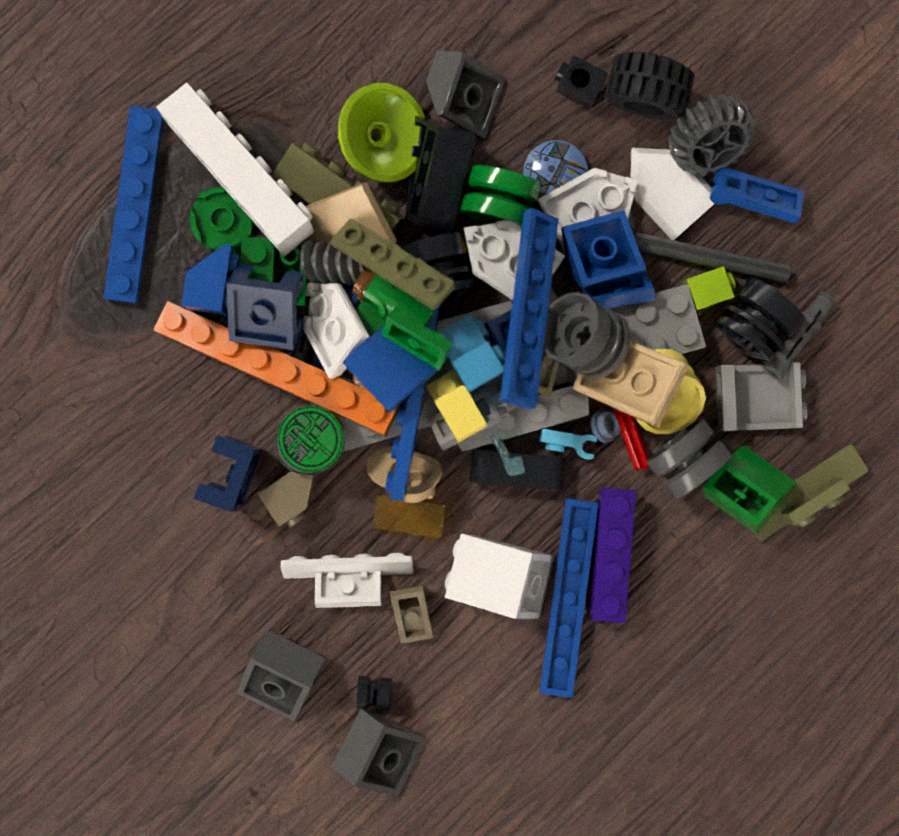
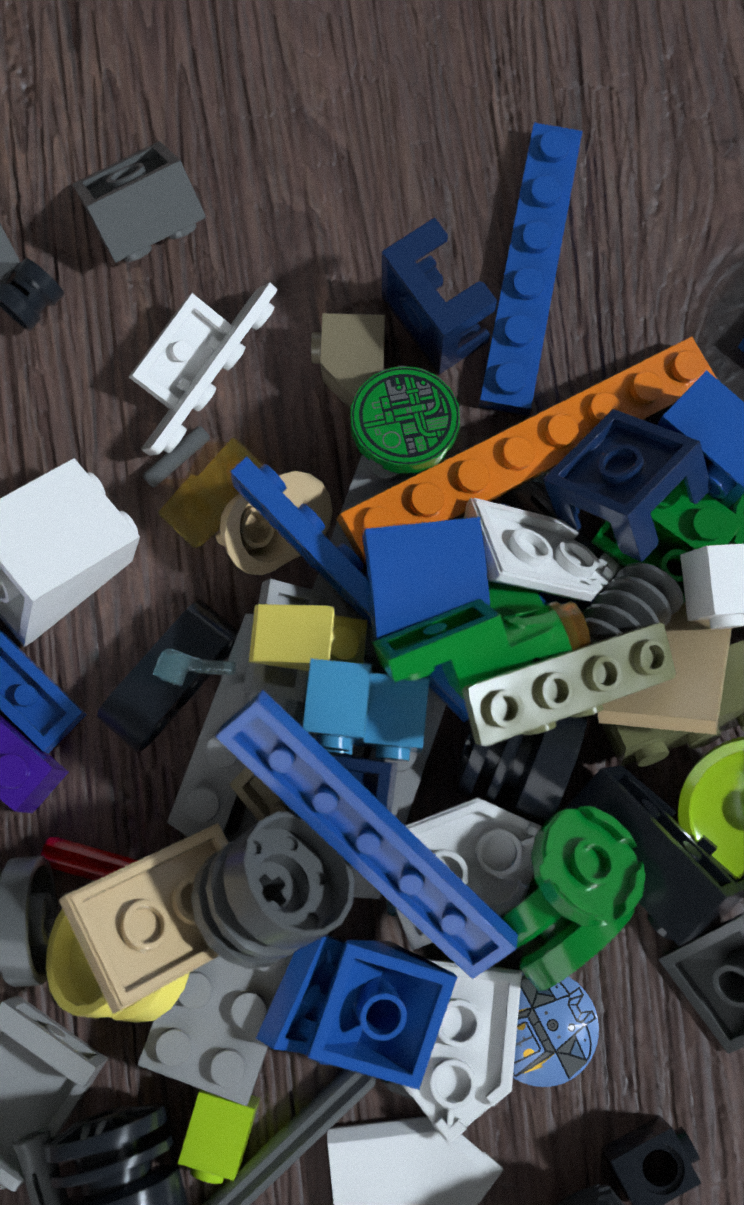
camera: 130 degrees right, 10 degrees down
(169, 441) = (530, 270): none -> blue plate
(411, 614) = (91, 406): dark tan slope -> none
(417, 554) = (176, 457): none -> dark grey piece
(469, 200) = (587, 866): none -> green tile
(558, 440) = (167, 758): medium azure plate -> none
(605, 426) = (138, 836): sand blue plate -> none

